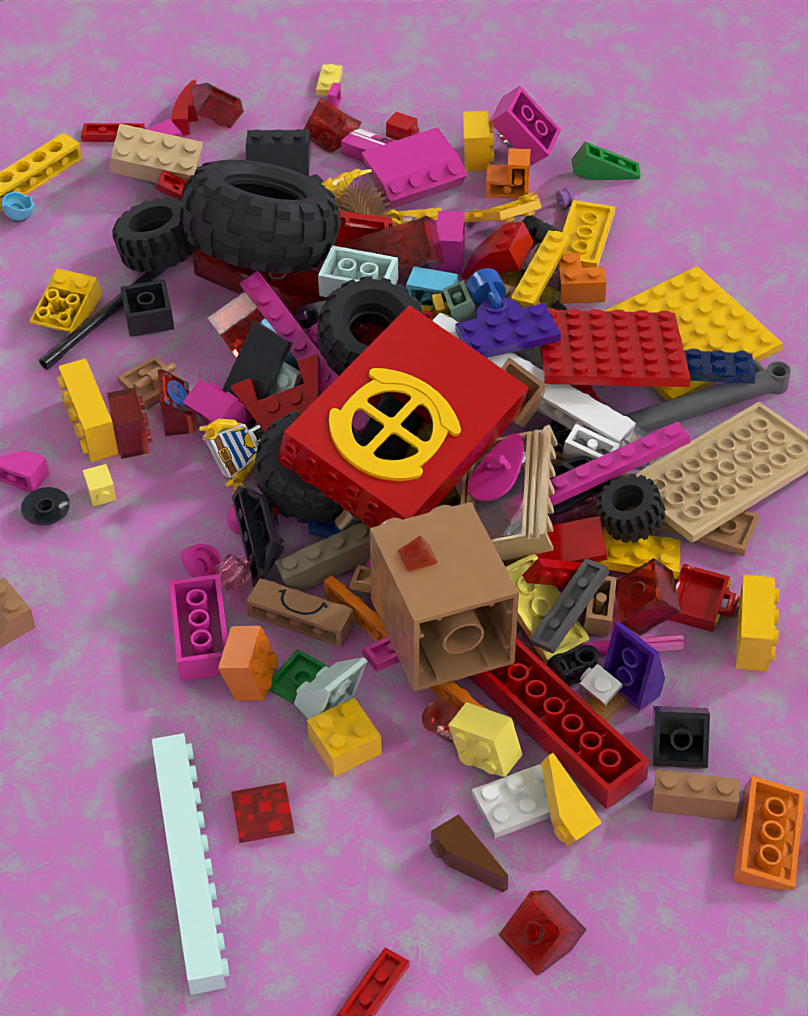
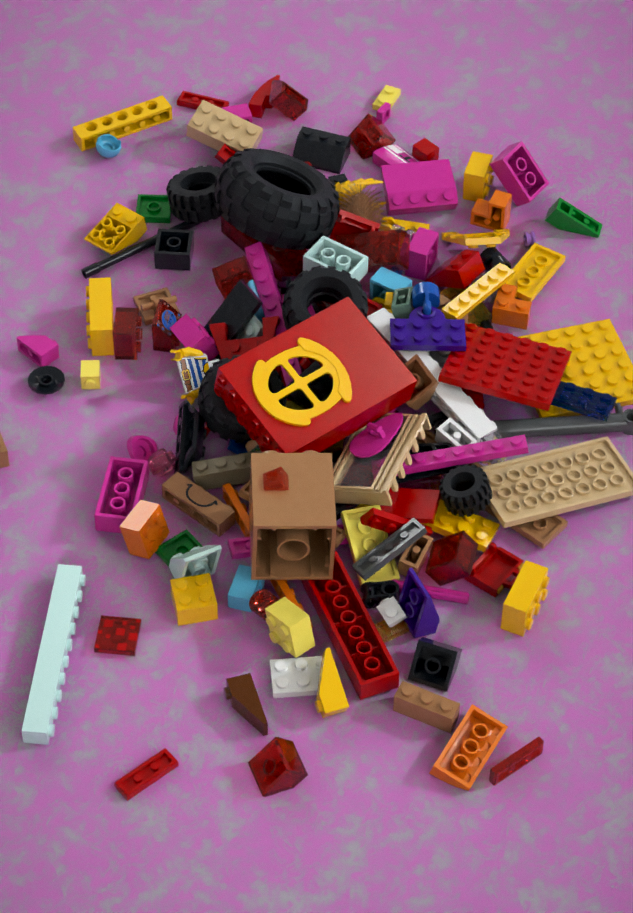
camera: 15 degrees right, 0 degrees up
(103, 264) = (154, 208): none -> green tile
(403, 706) = (243, 589): none -> medium azure brick

